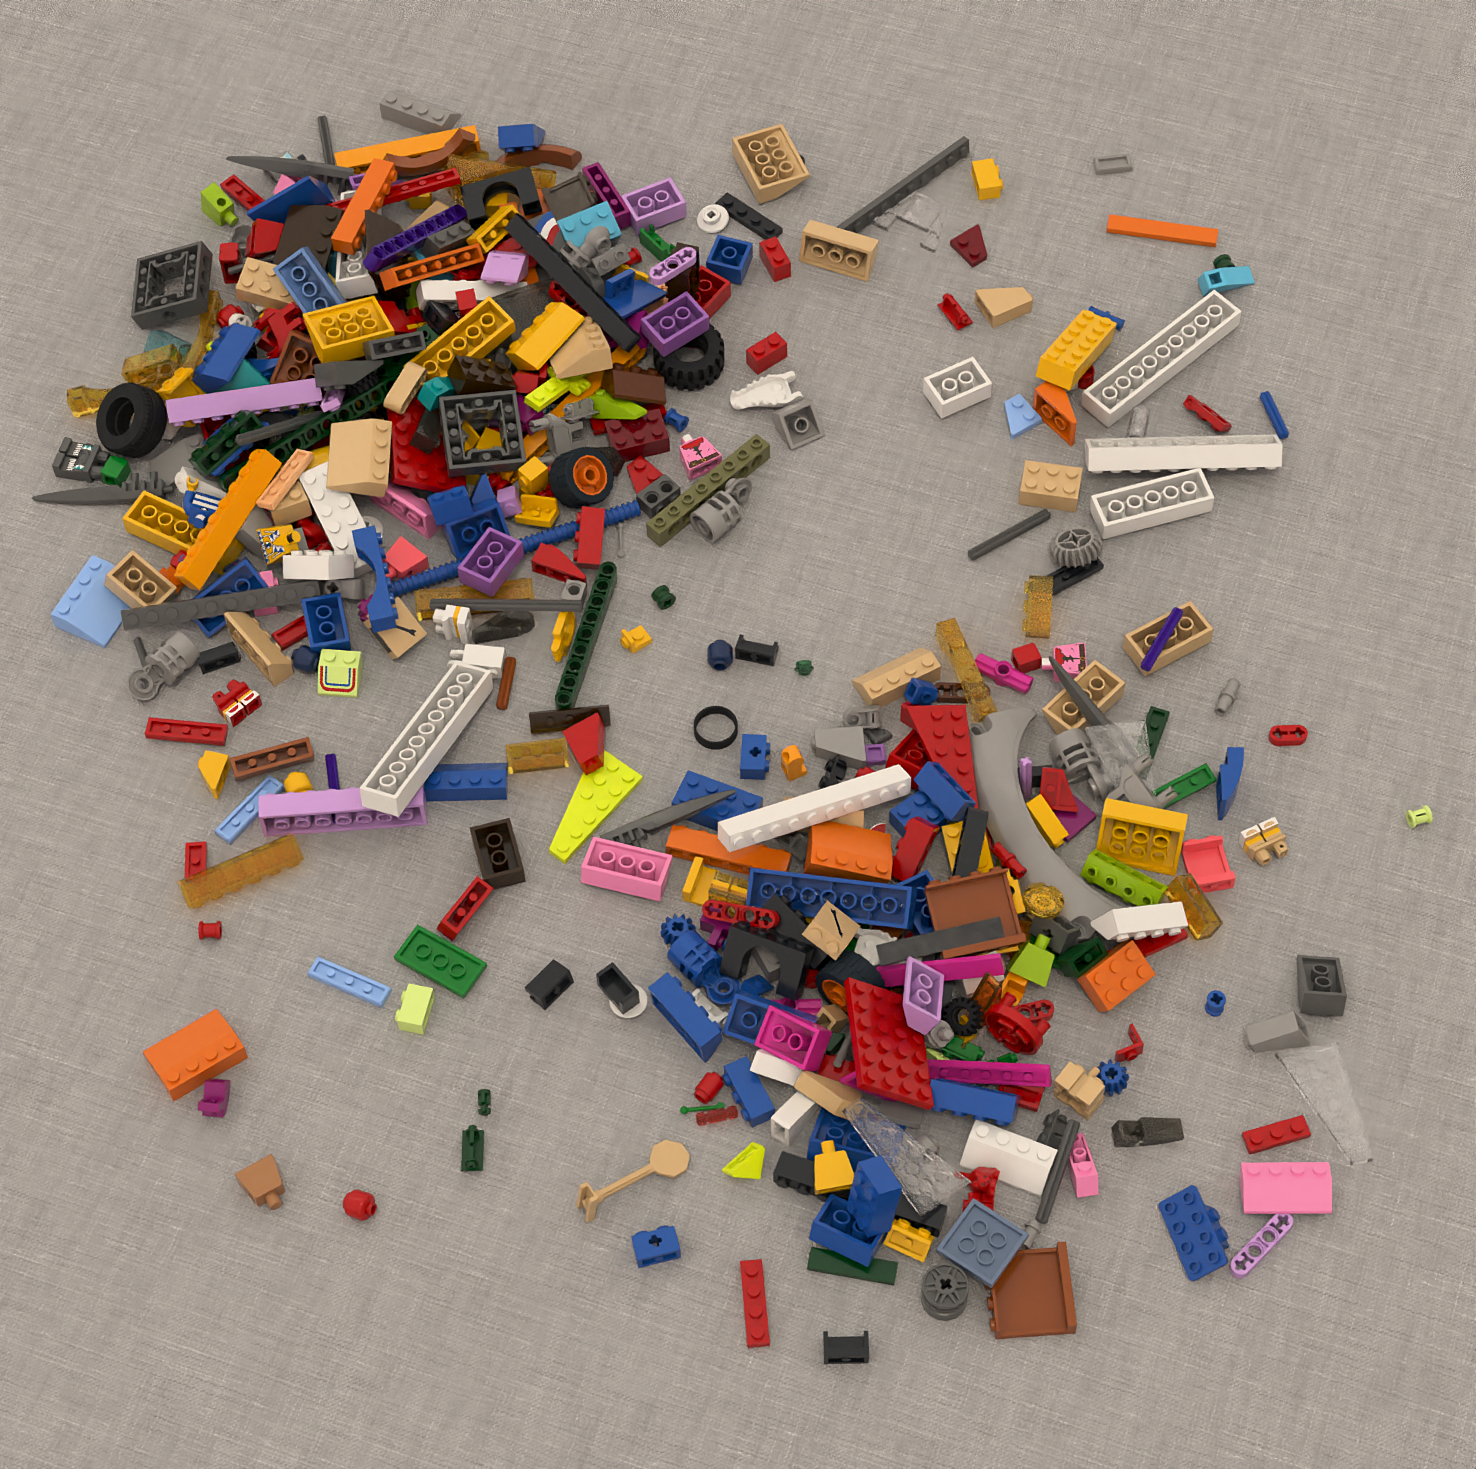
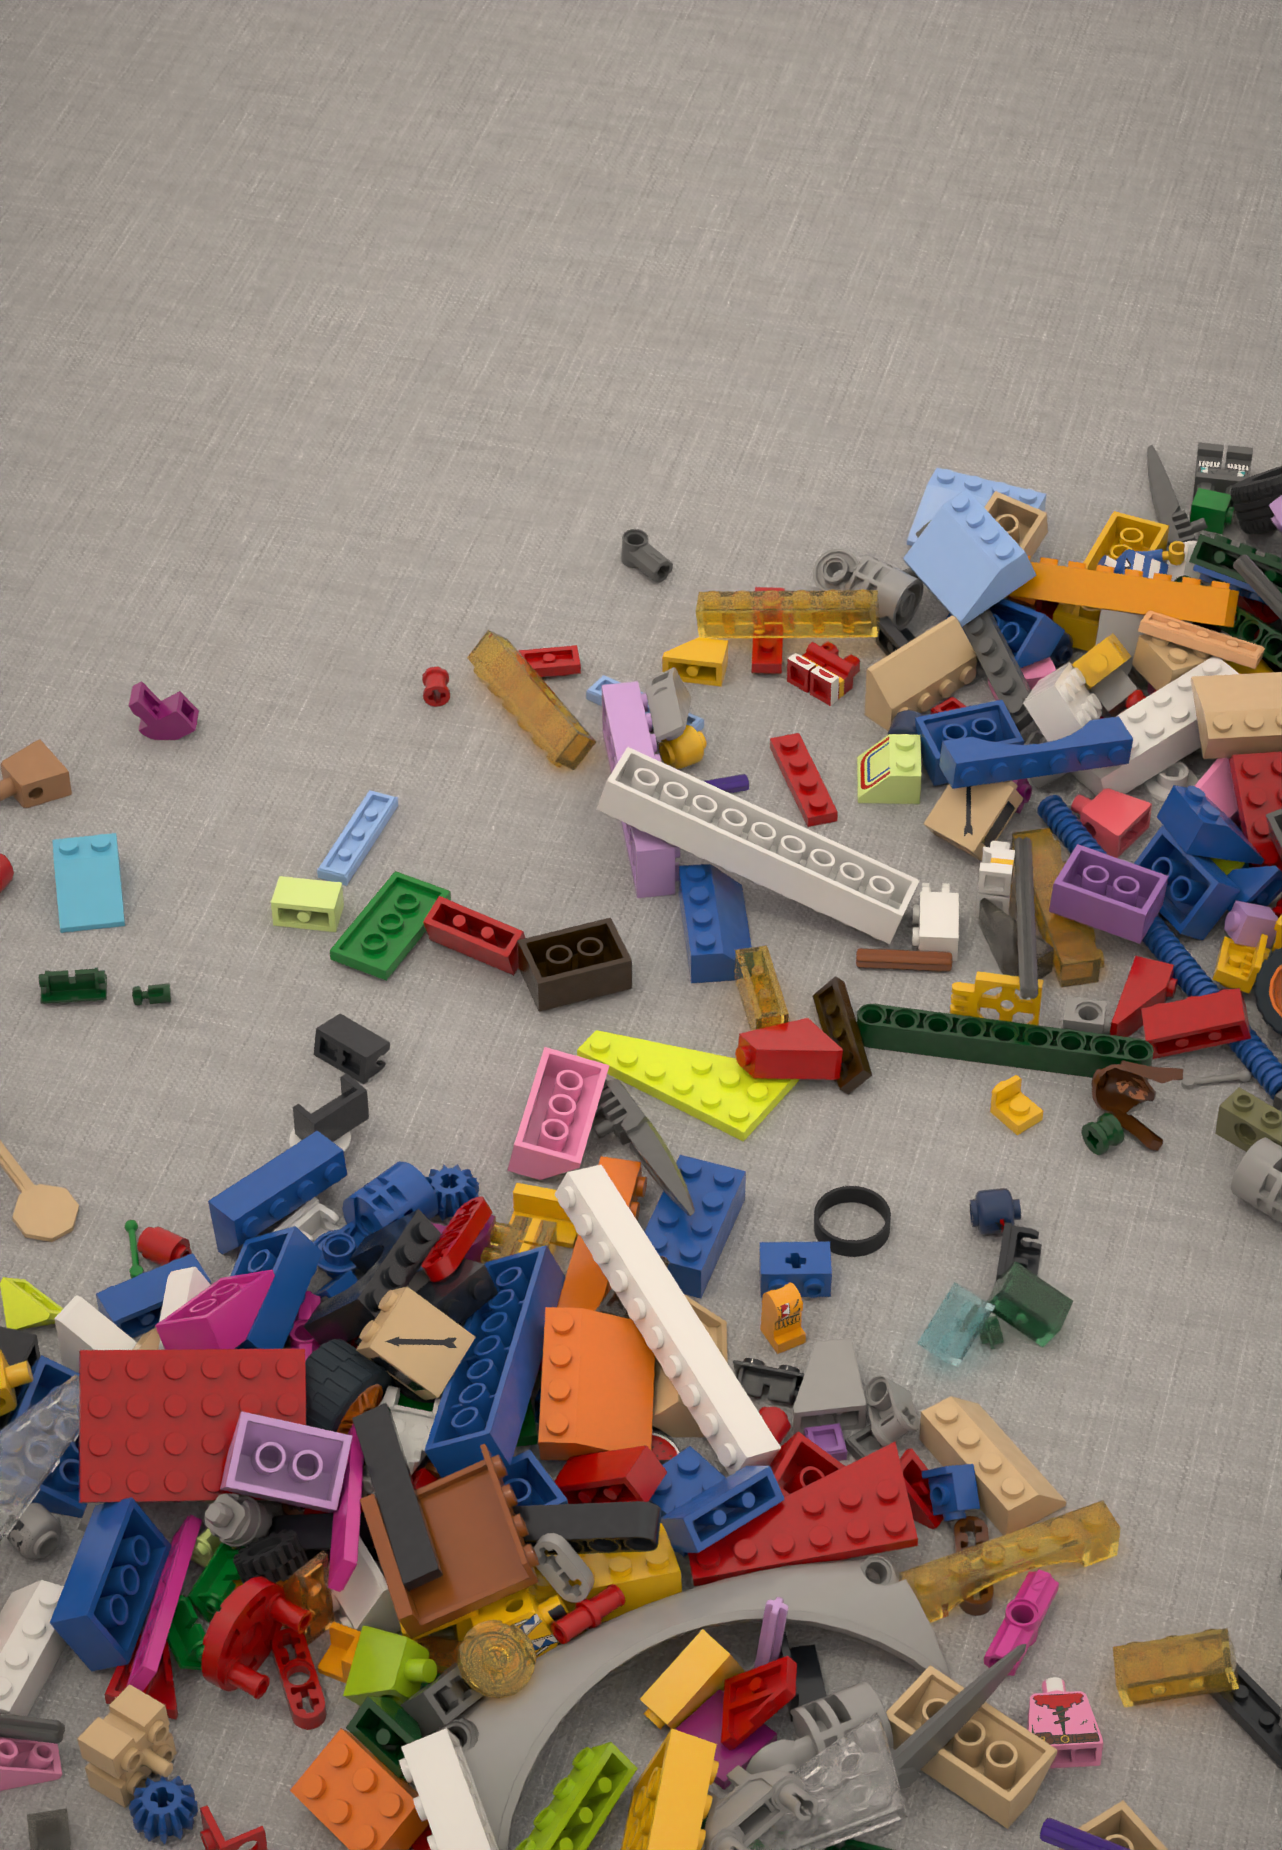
camera: 85 degrees right, 15 degrees down
(96, 799) = (639, 554): none -> dark grey piece
(181, 595) = (968, 558): none -> light blue slope
(191, 711) = (788, 614): none -> clear yellow brick
(195, 1054) = (236, 694): orange slope -> none
(272, 759) = (723, 711): dark orange brick -> none
(276, 783) = (668, 704): none -> light grey slope
(334, 723) = (803, 780): none -> red plate
(377, 1142) = (88, 882): none -> medium azure slope
(628, 581) = (1125, 1086): none -> reddish brown piece
(716, 1115) = (116, 1260): clear red axle -> none
(794, 643) = (1029, 1304): none -> clear green brick
(810, 677) = (956, 1324): none -> clear light blue brick
(990, 860) = (563, 1567): none -> light grey beam
(1026, 658) = (1058, 1652): red panel -> none
(1053, 1125) = (75, 1720): dark grey hinge -> none

